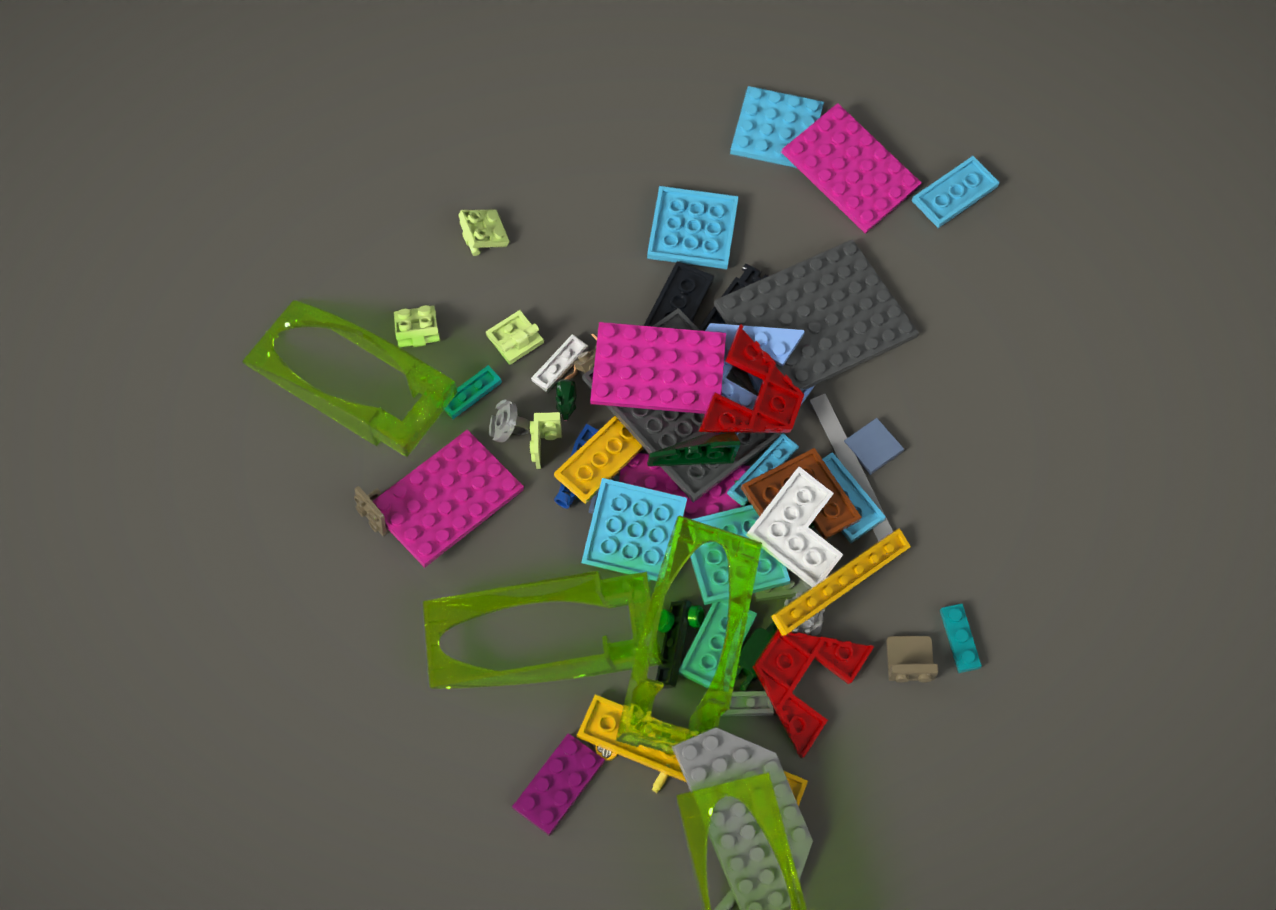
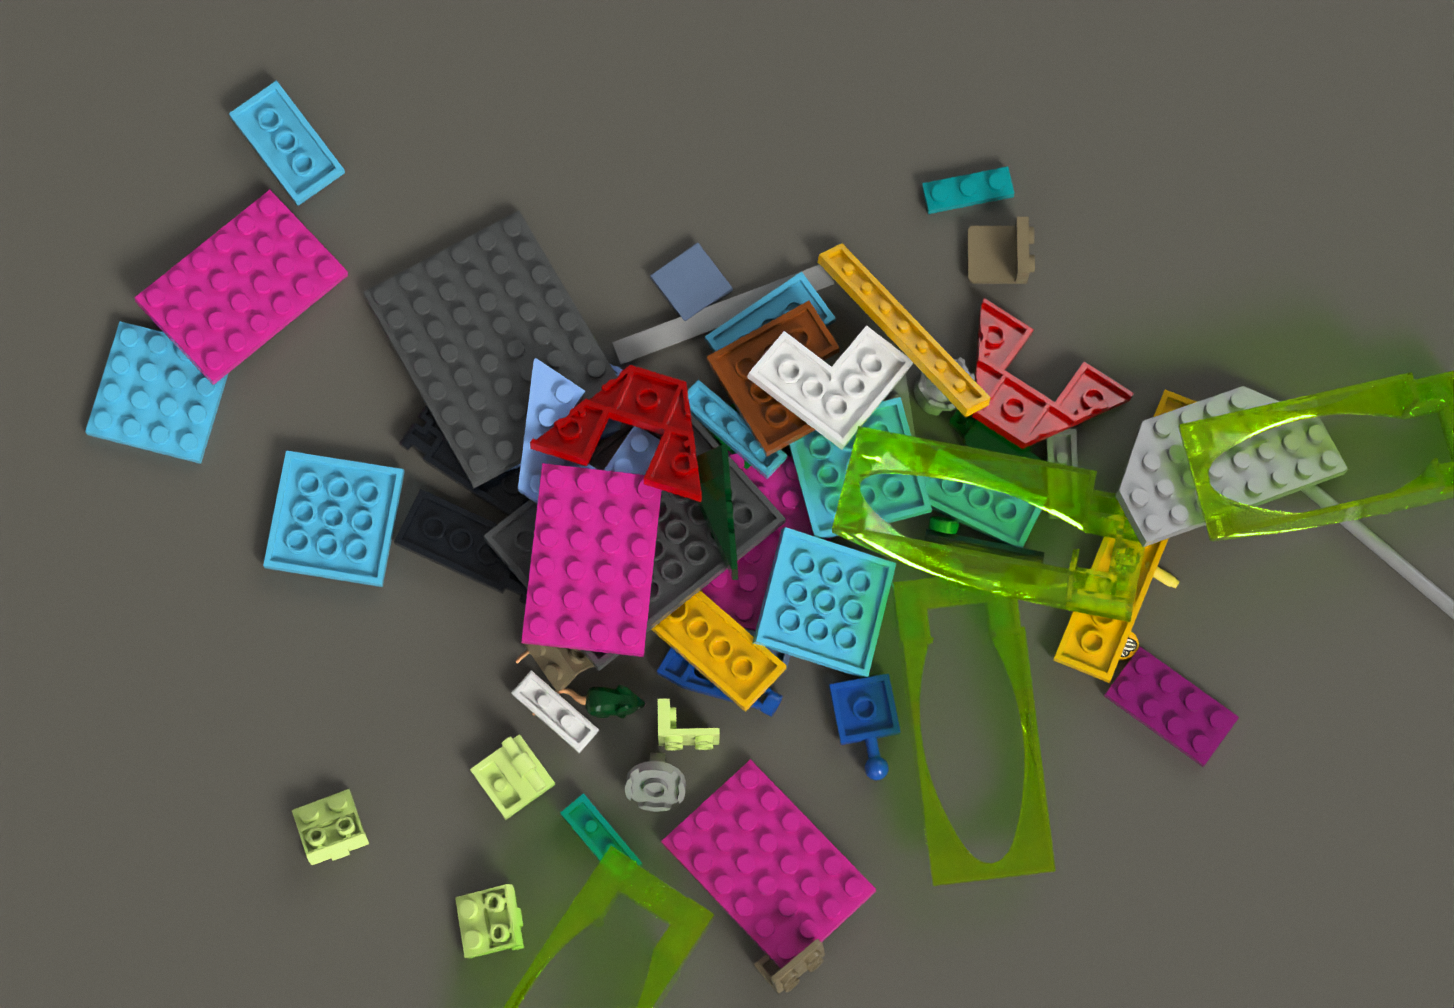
camera: 90 degrees left, 10 degrees up
(553, 560) = (863, 713): none -> blue plate

